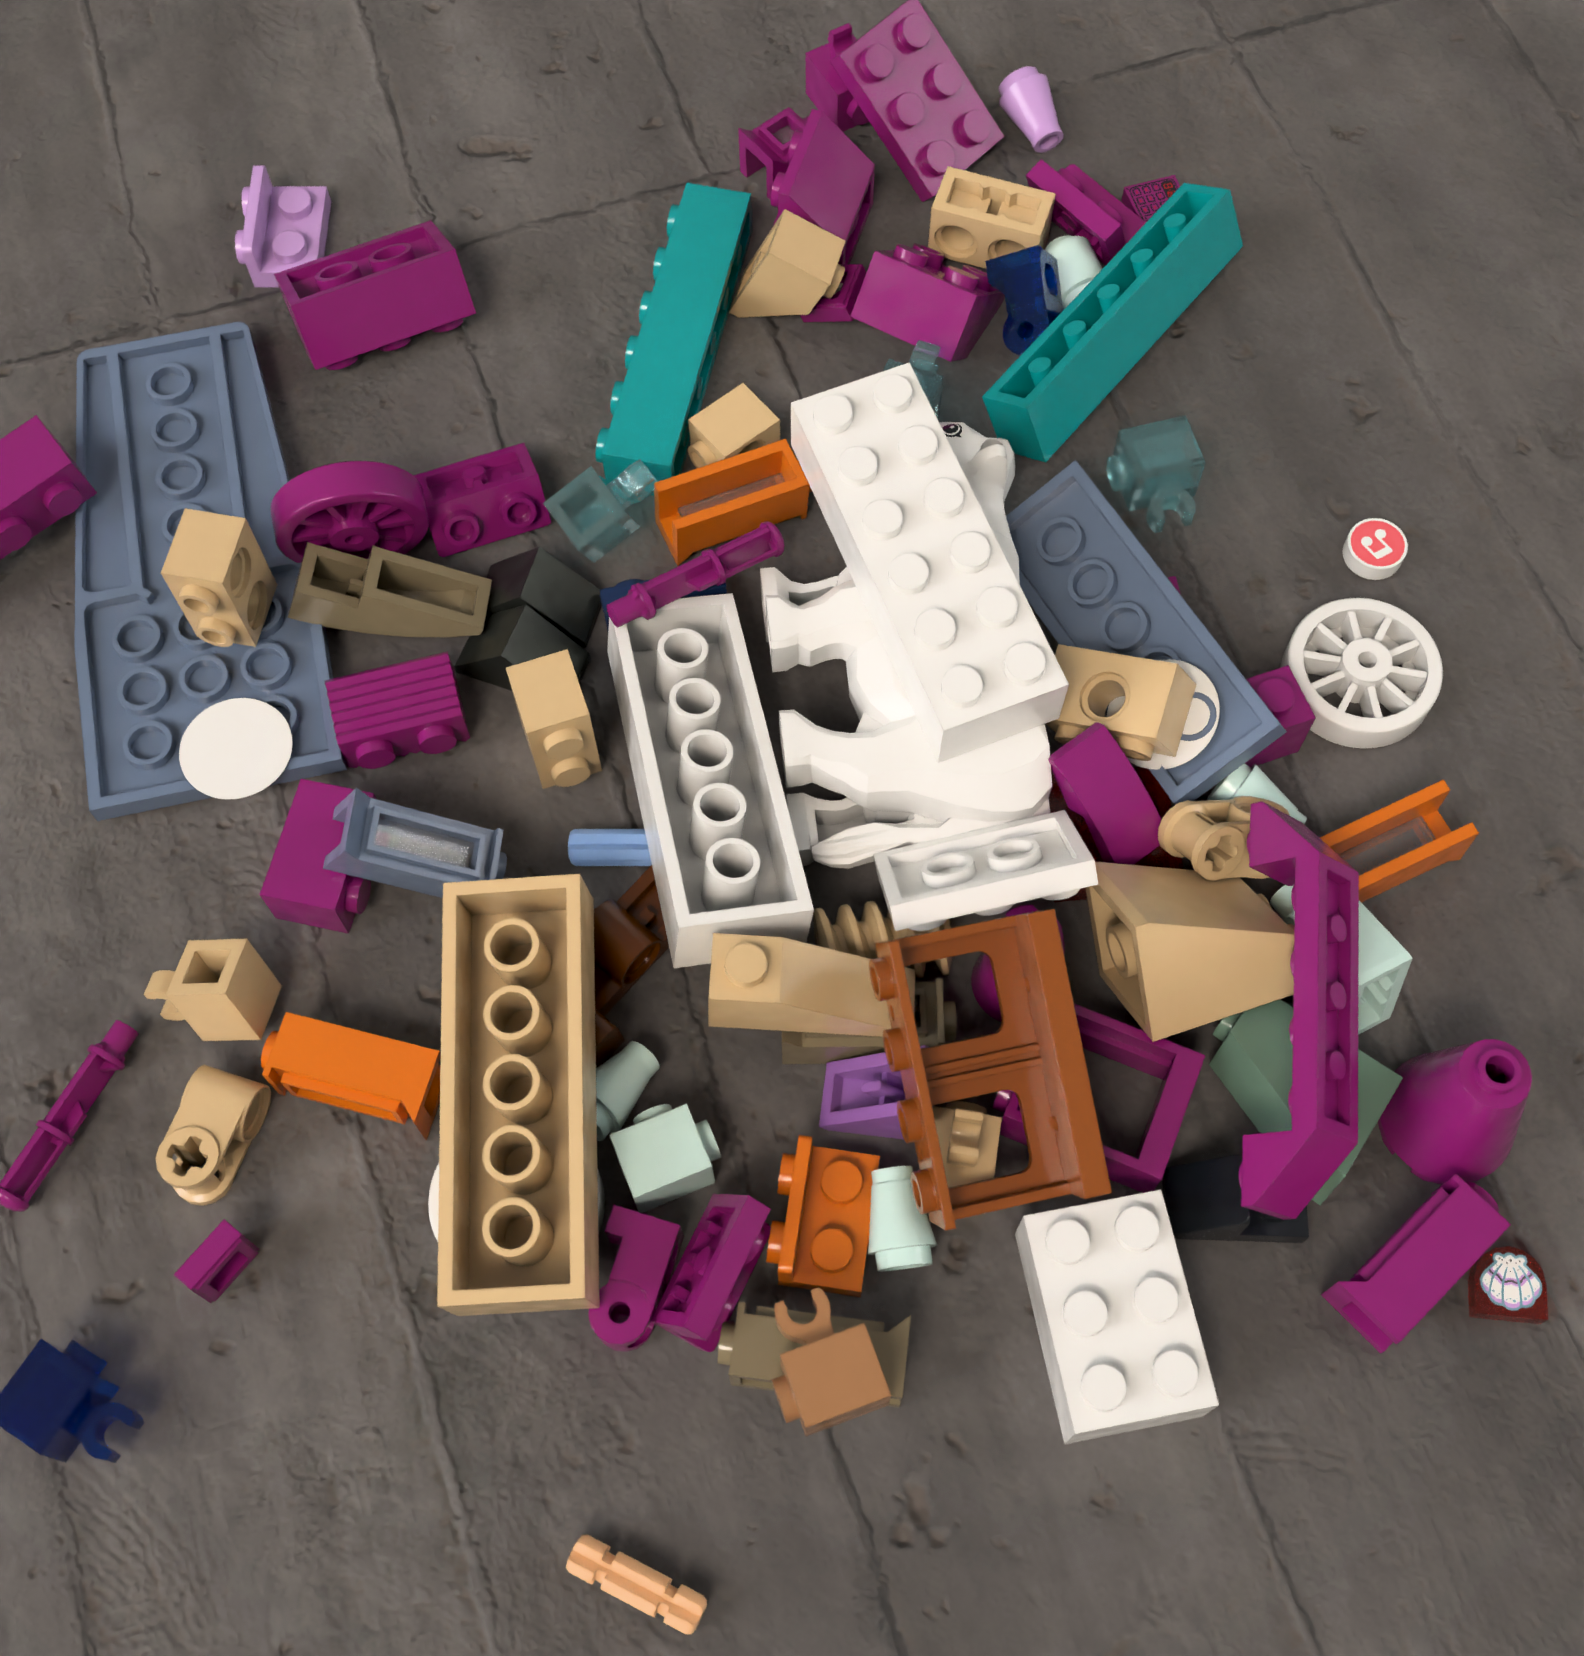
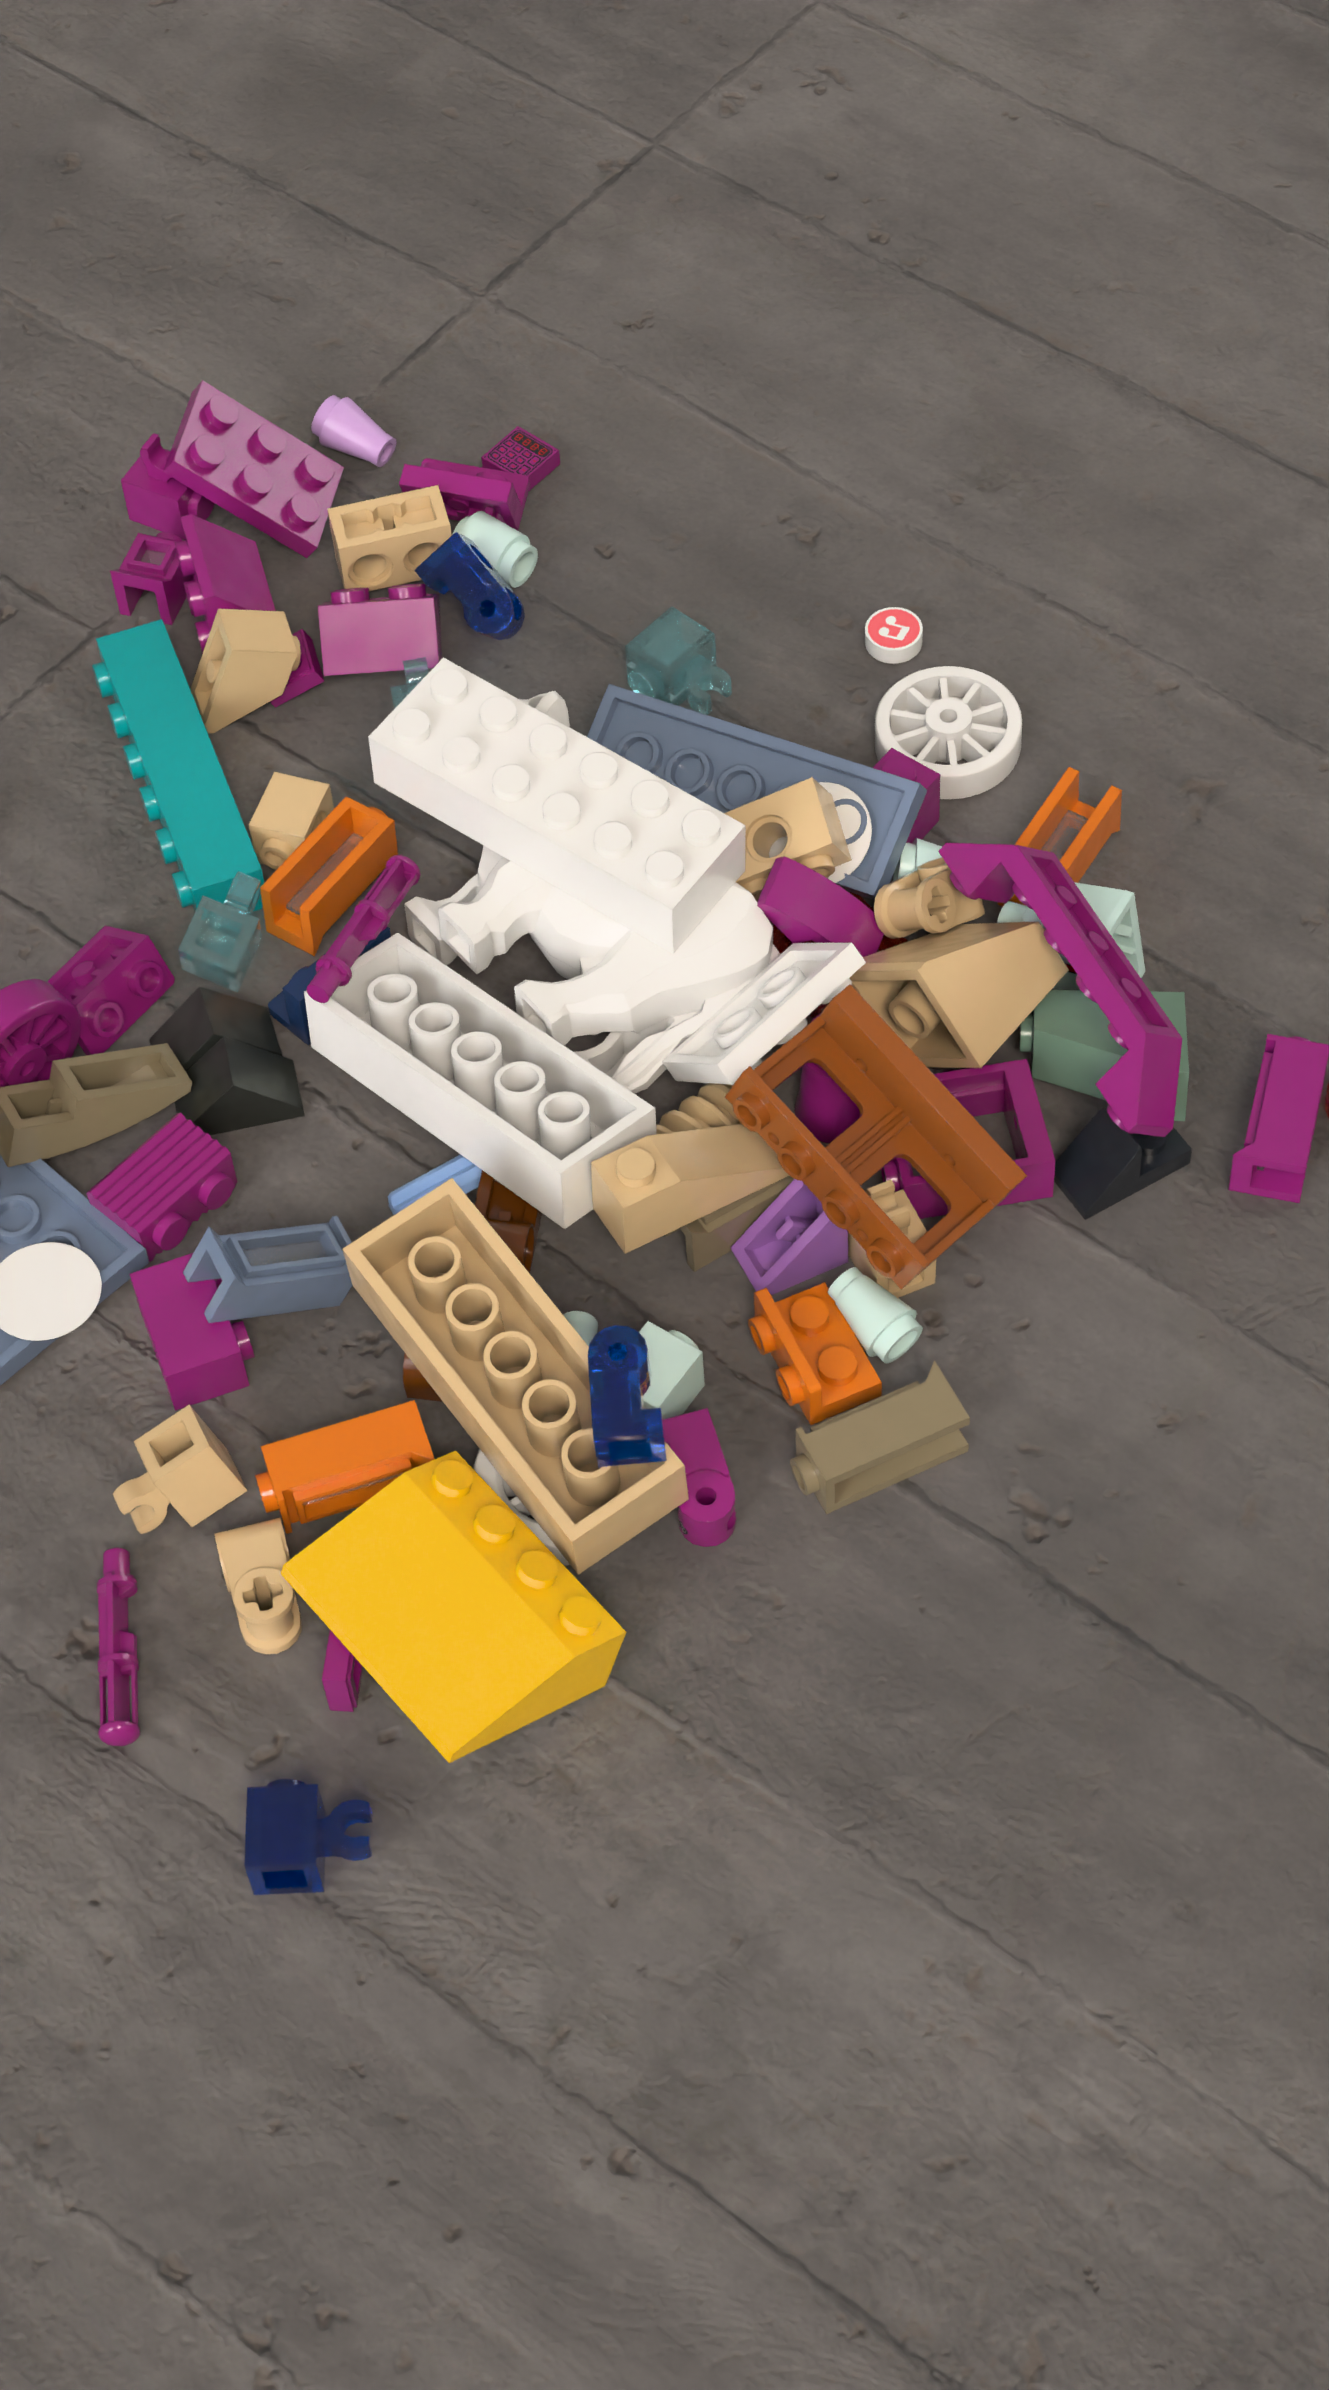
camera: 30 degrees left, 10 degrees down
(324, 1284) = (456, 1607): none -> yellow slope
(555, 719) = (317, 1111): tan brick -> none
(559, 1197) = (618, 1380): none -> clear blue leg
(636, 1584) = (858, 1680): light nougat axle -> none
(714, 1270) = (756, 1424): magenta bracket -> none
(829, 1375) = (902, 1423): medium nougat brick -> none
(1114, 321) = (557, 560): teal brick -> none
(1114, 1317) = (1086, 1281): white brick -> none
(1457, 1110) = (1239, 989): magenta cone -> none

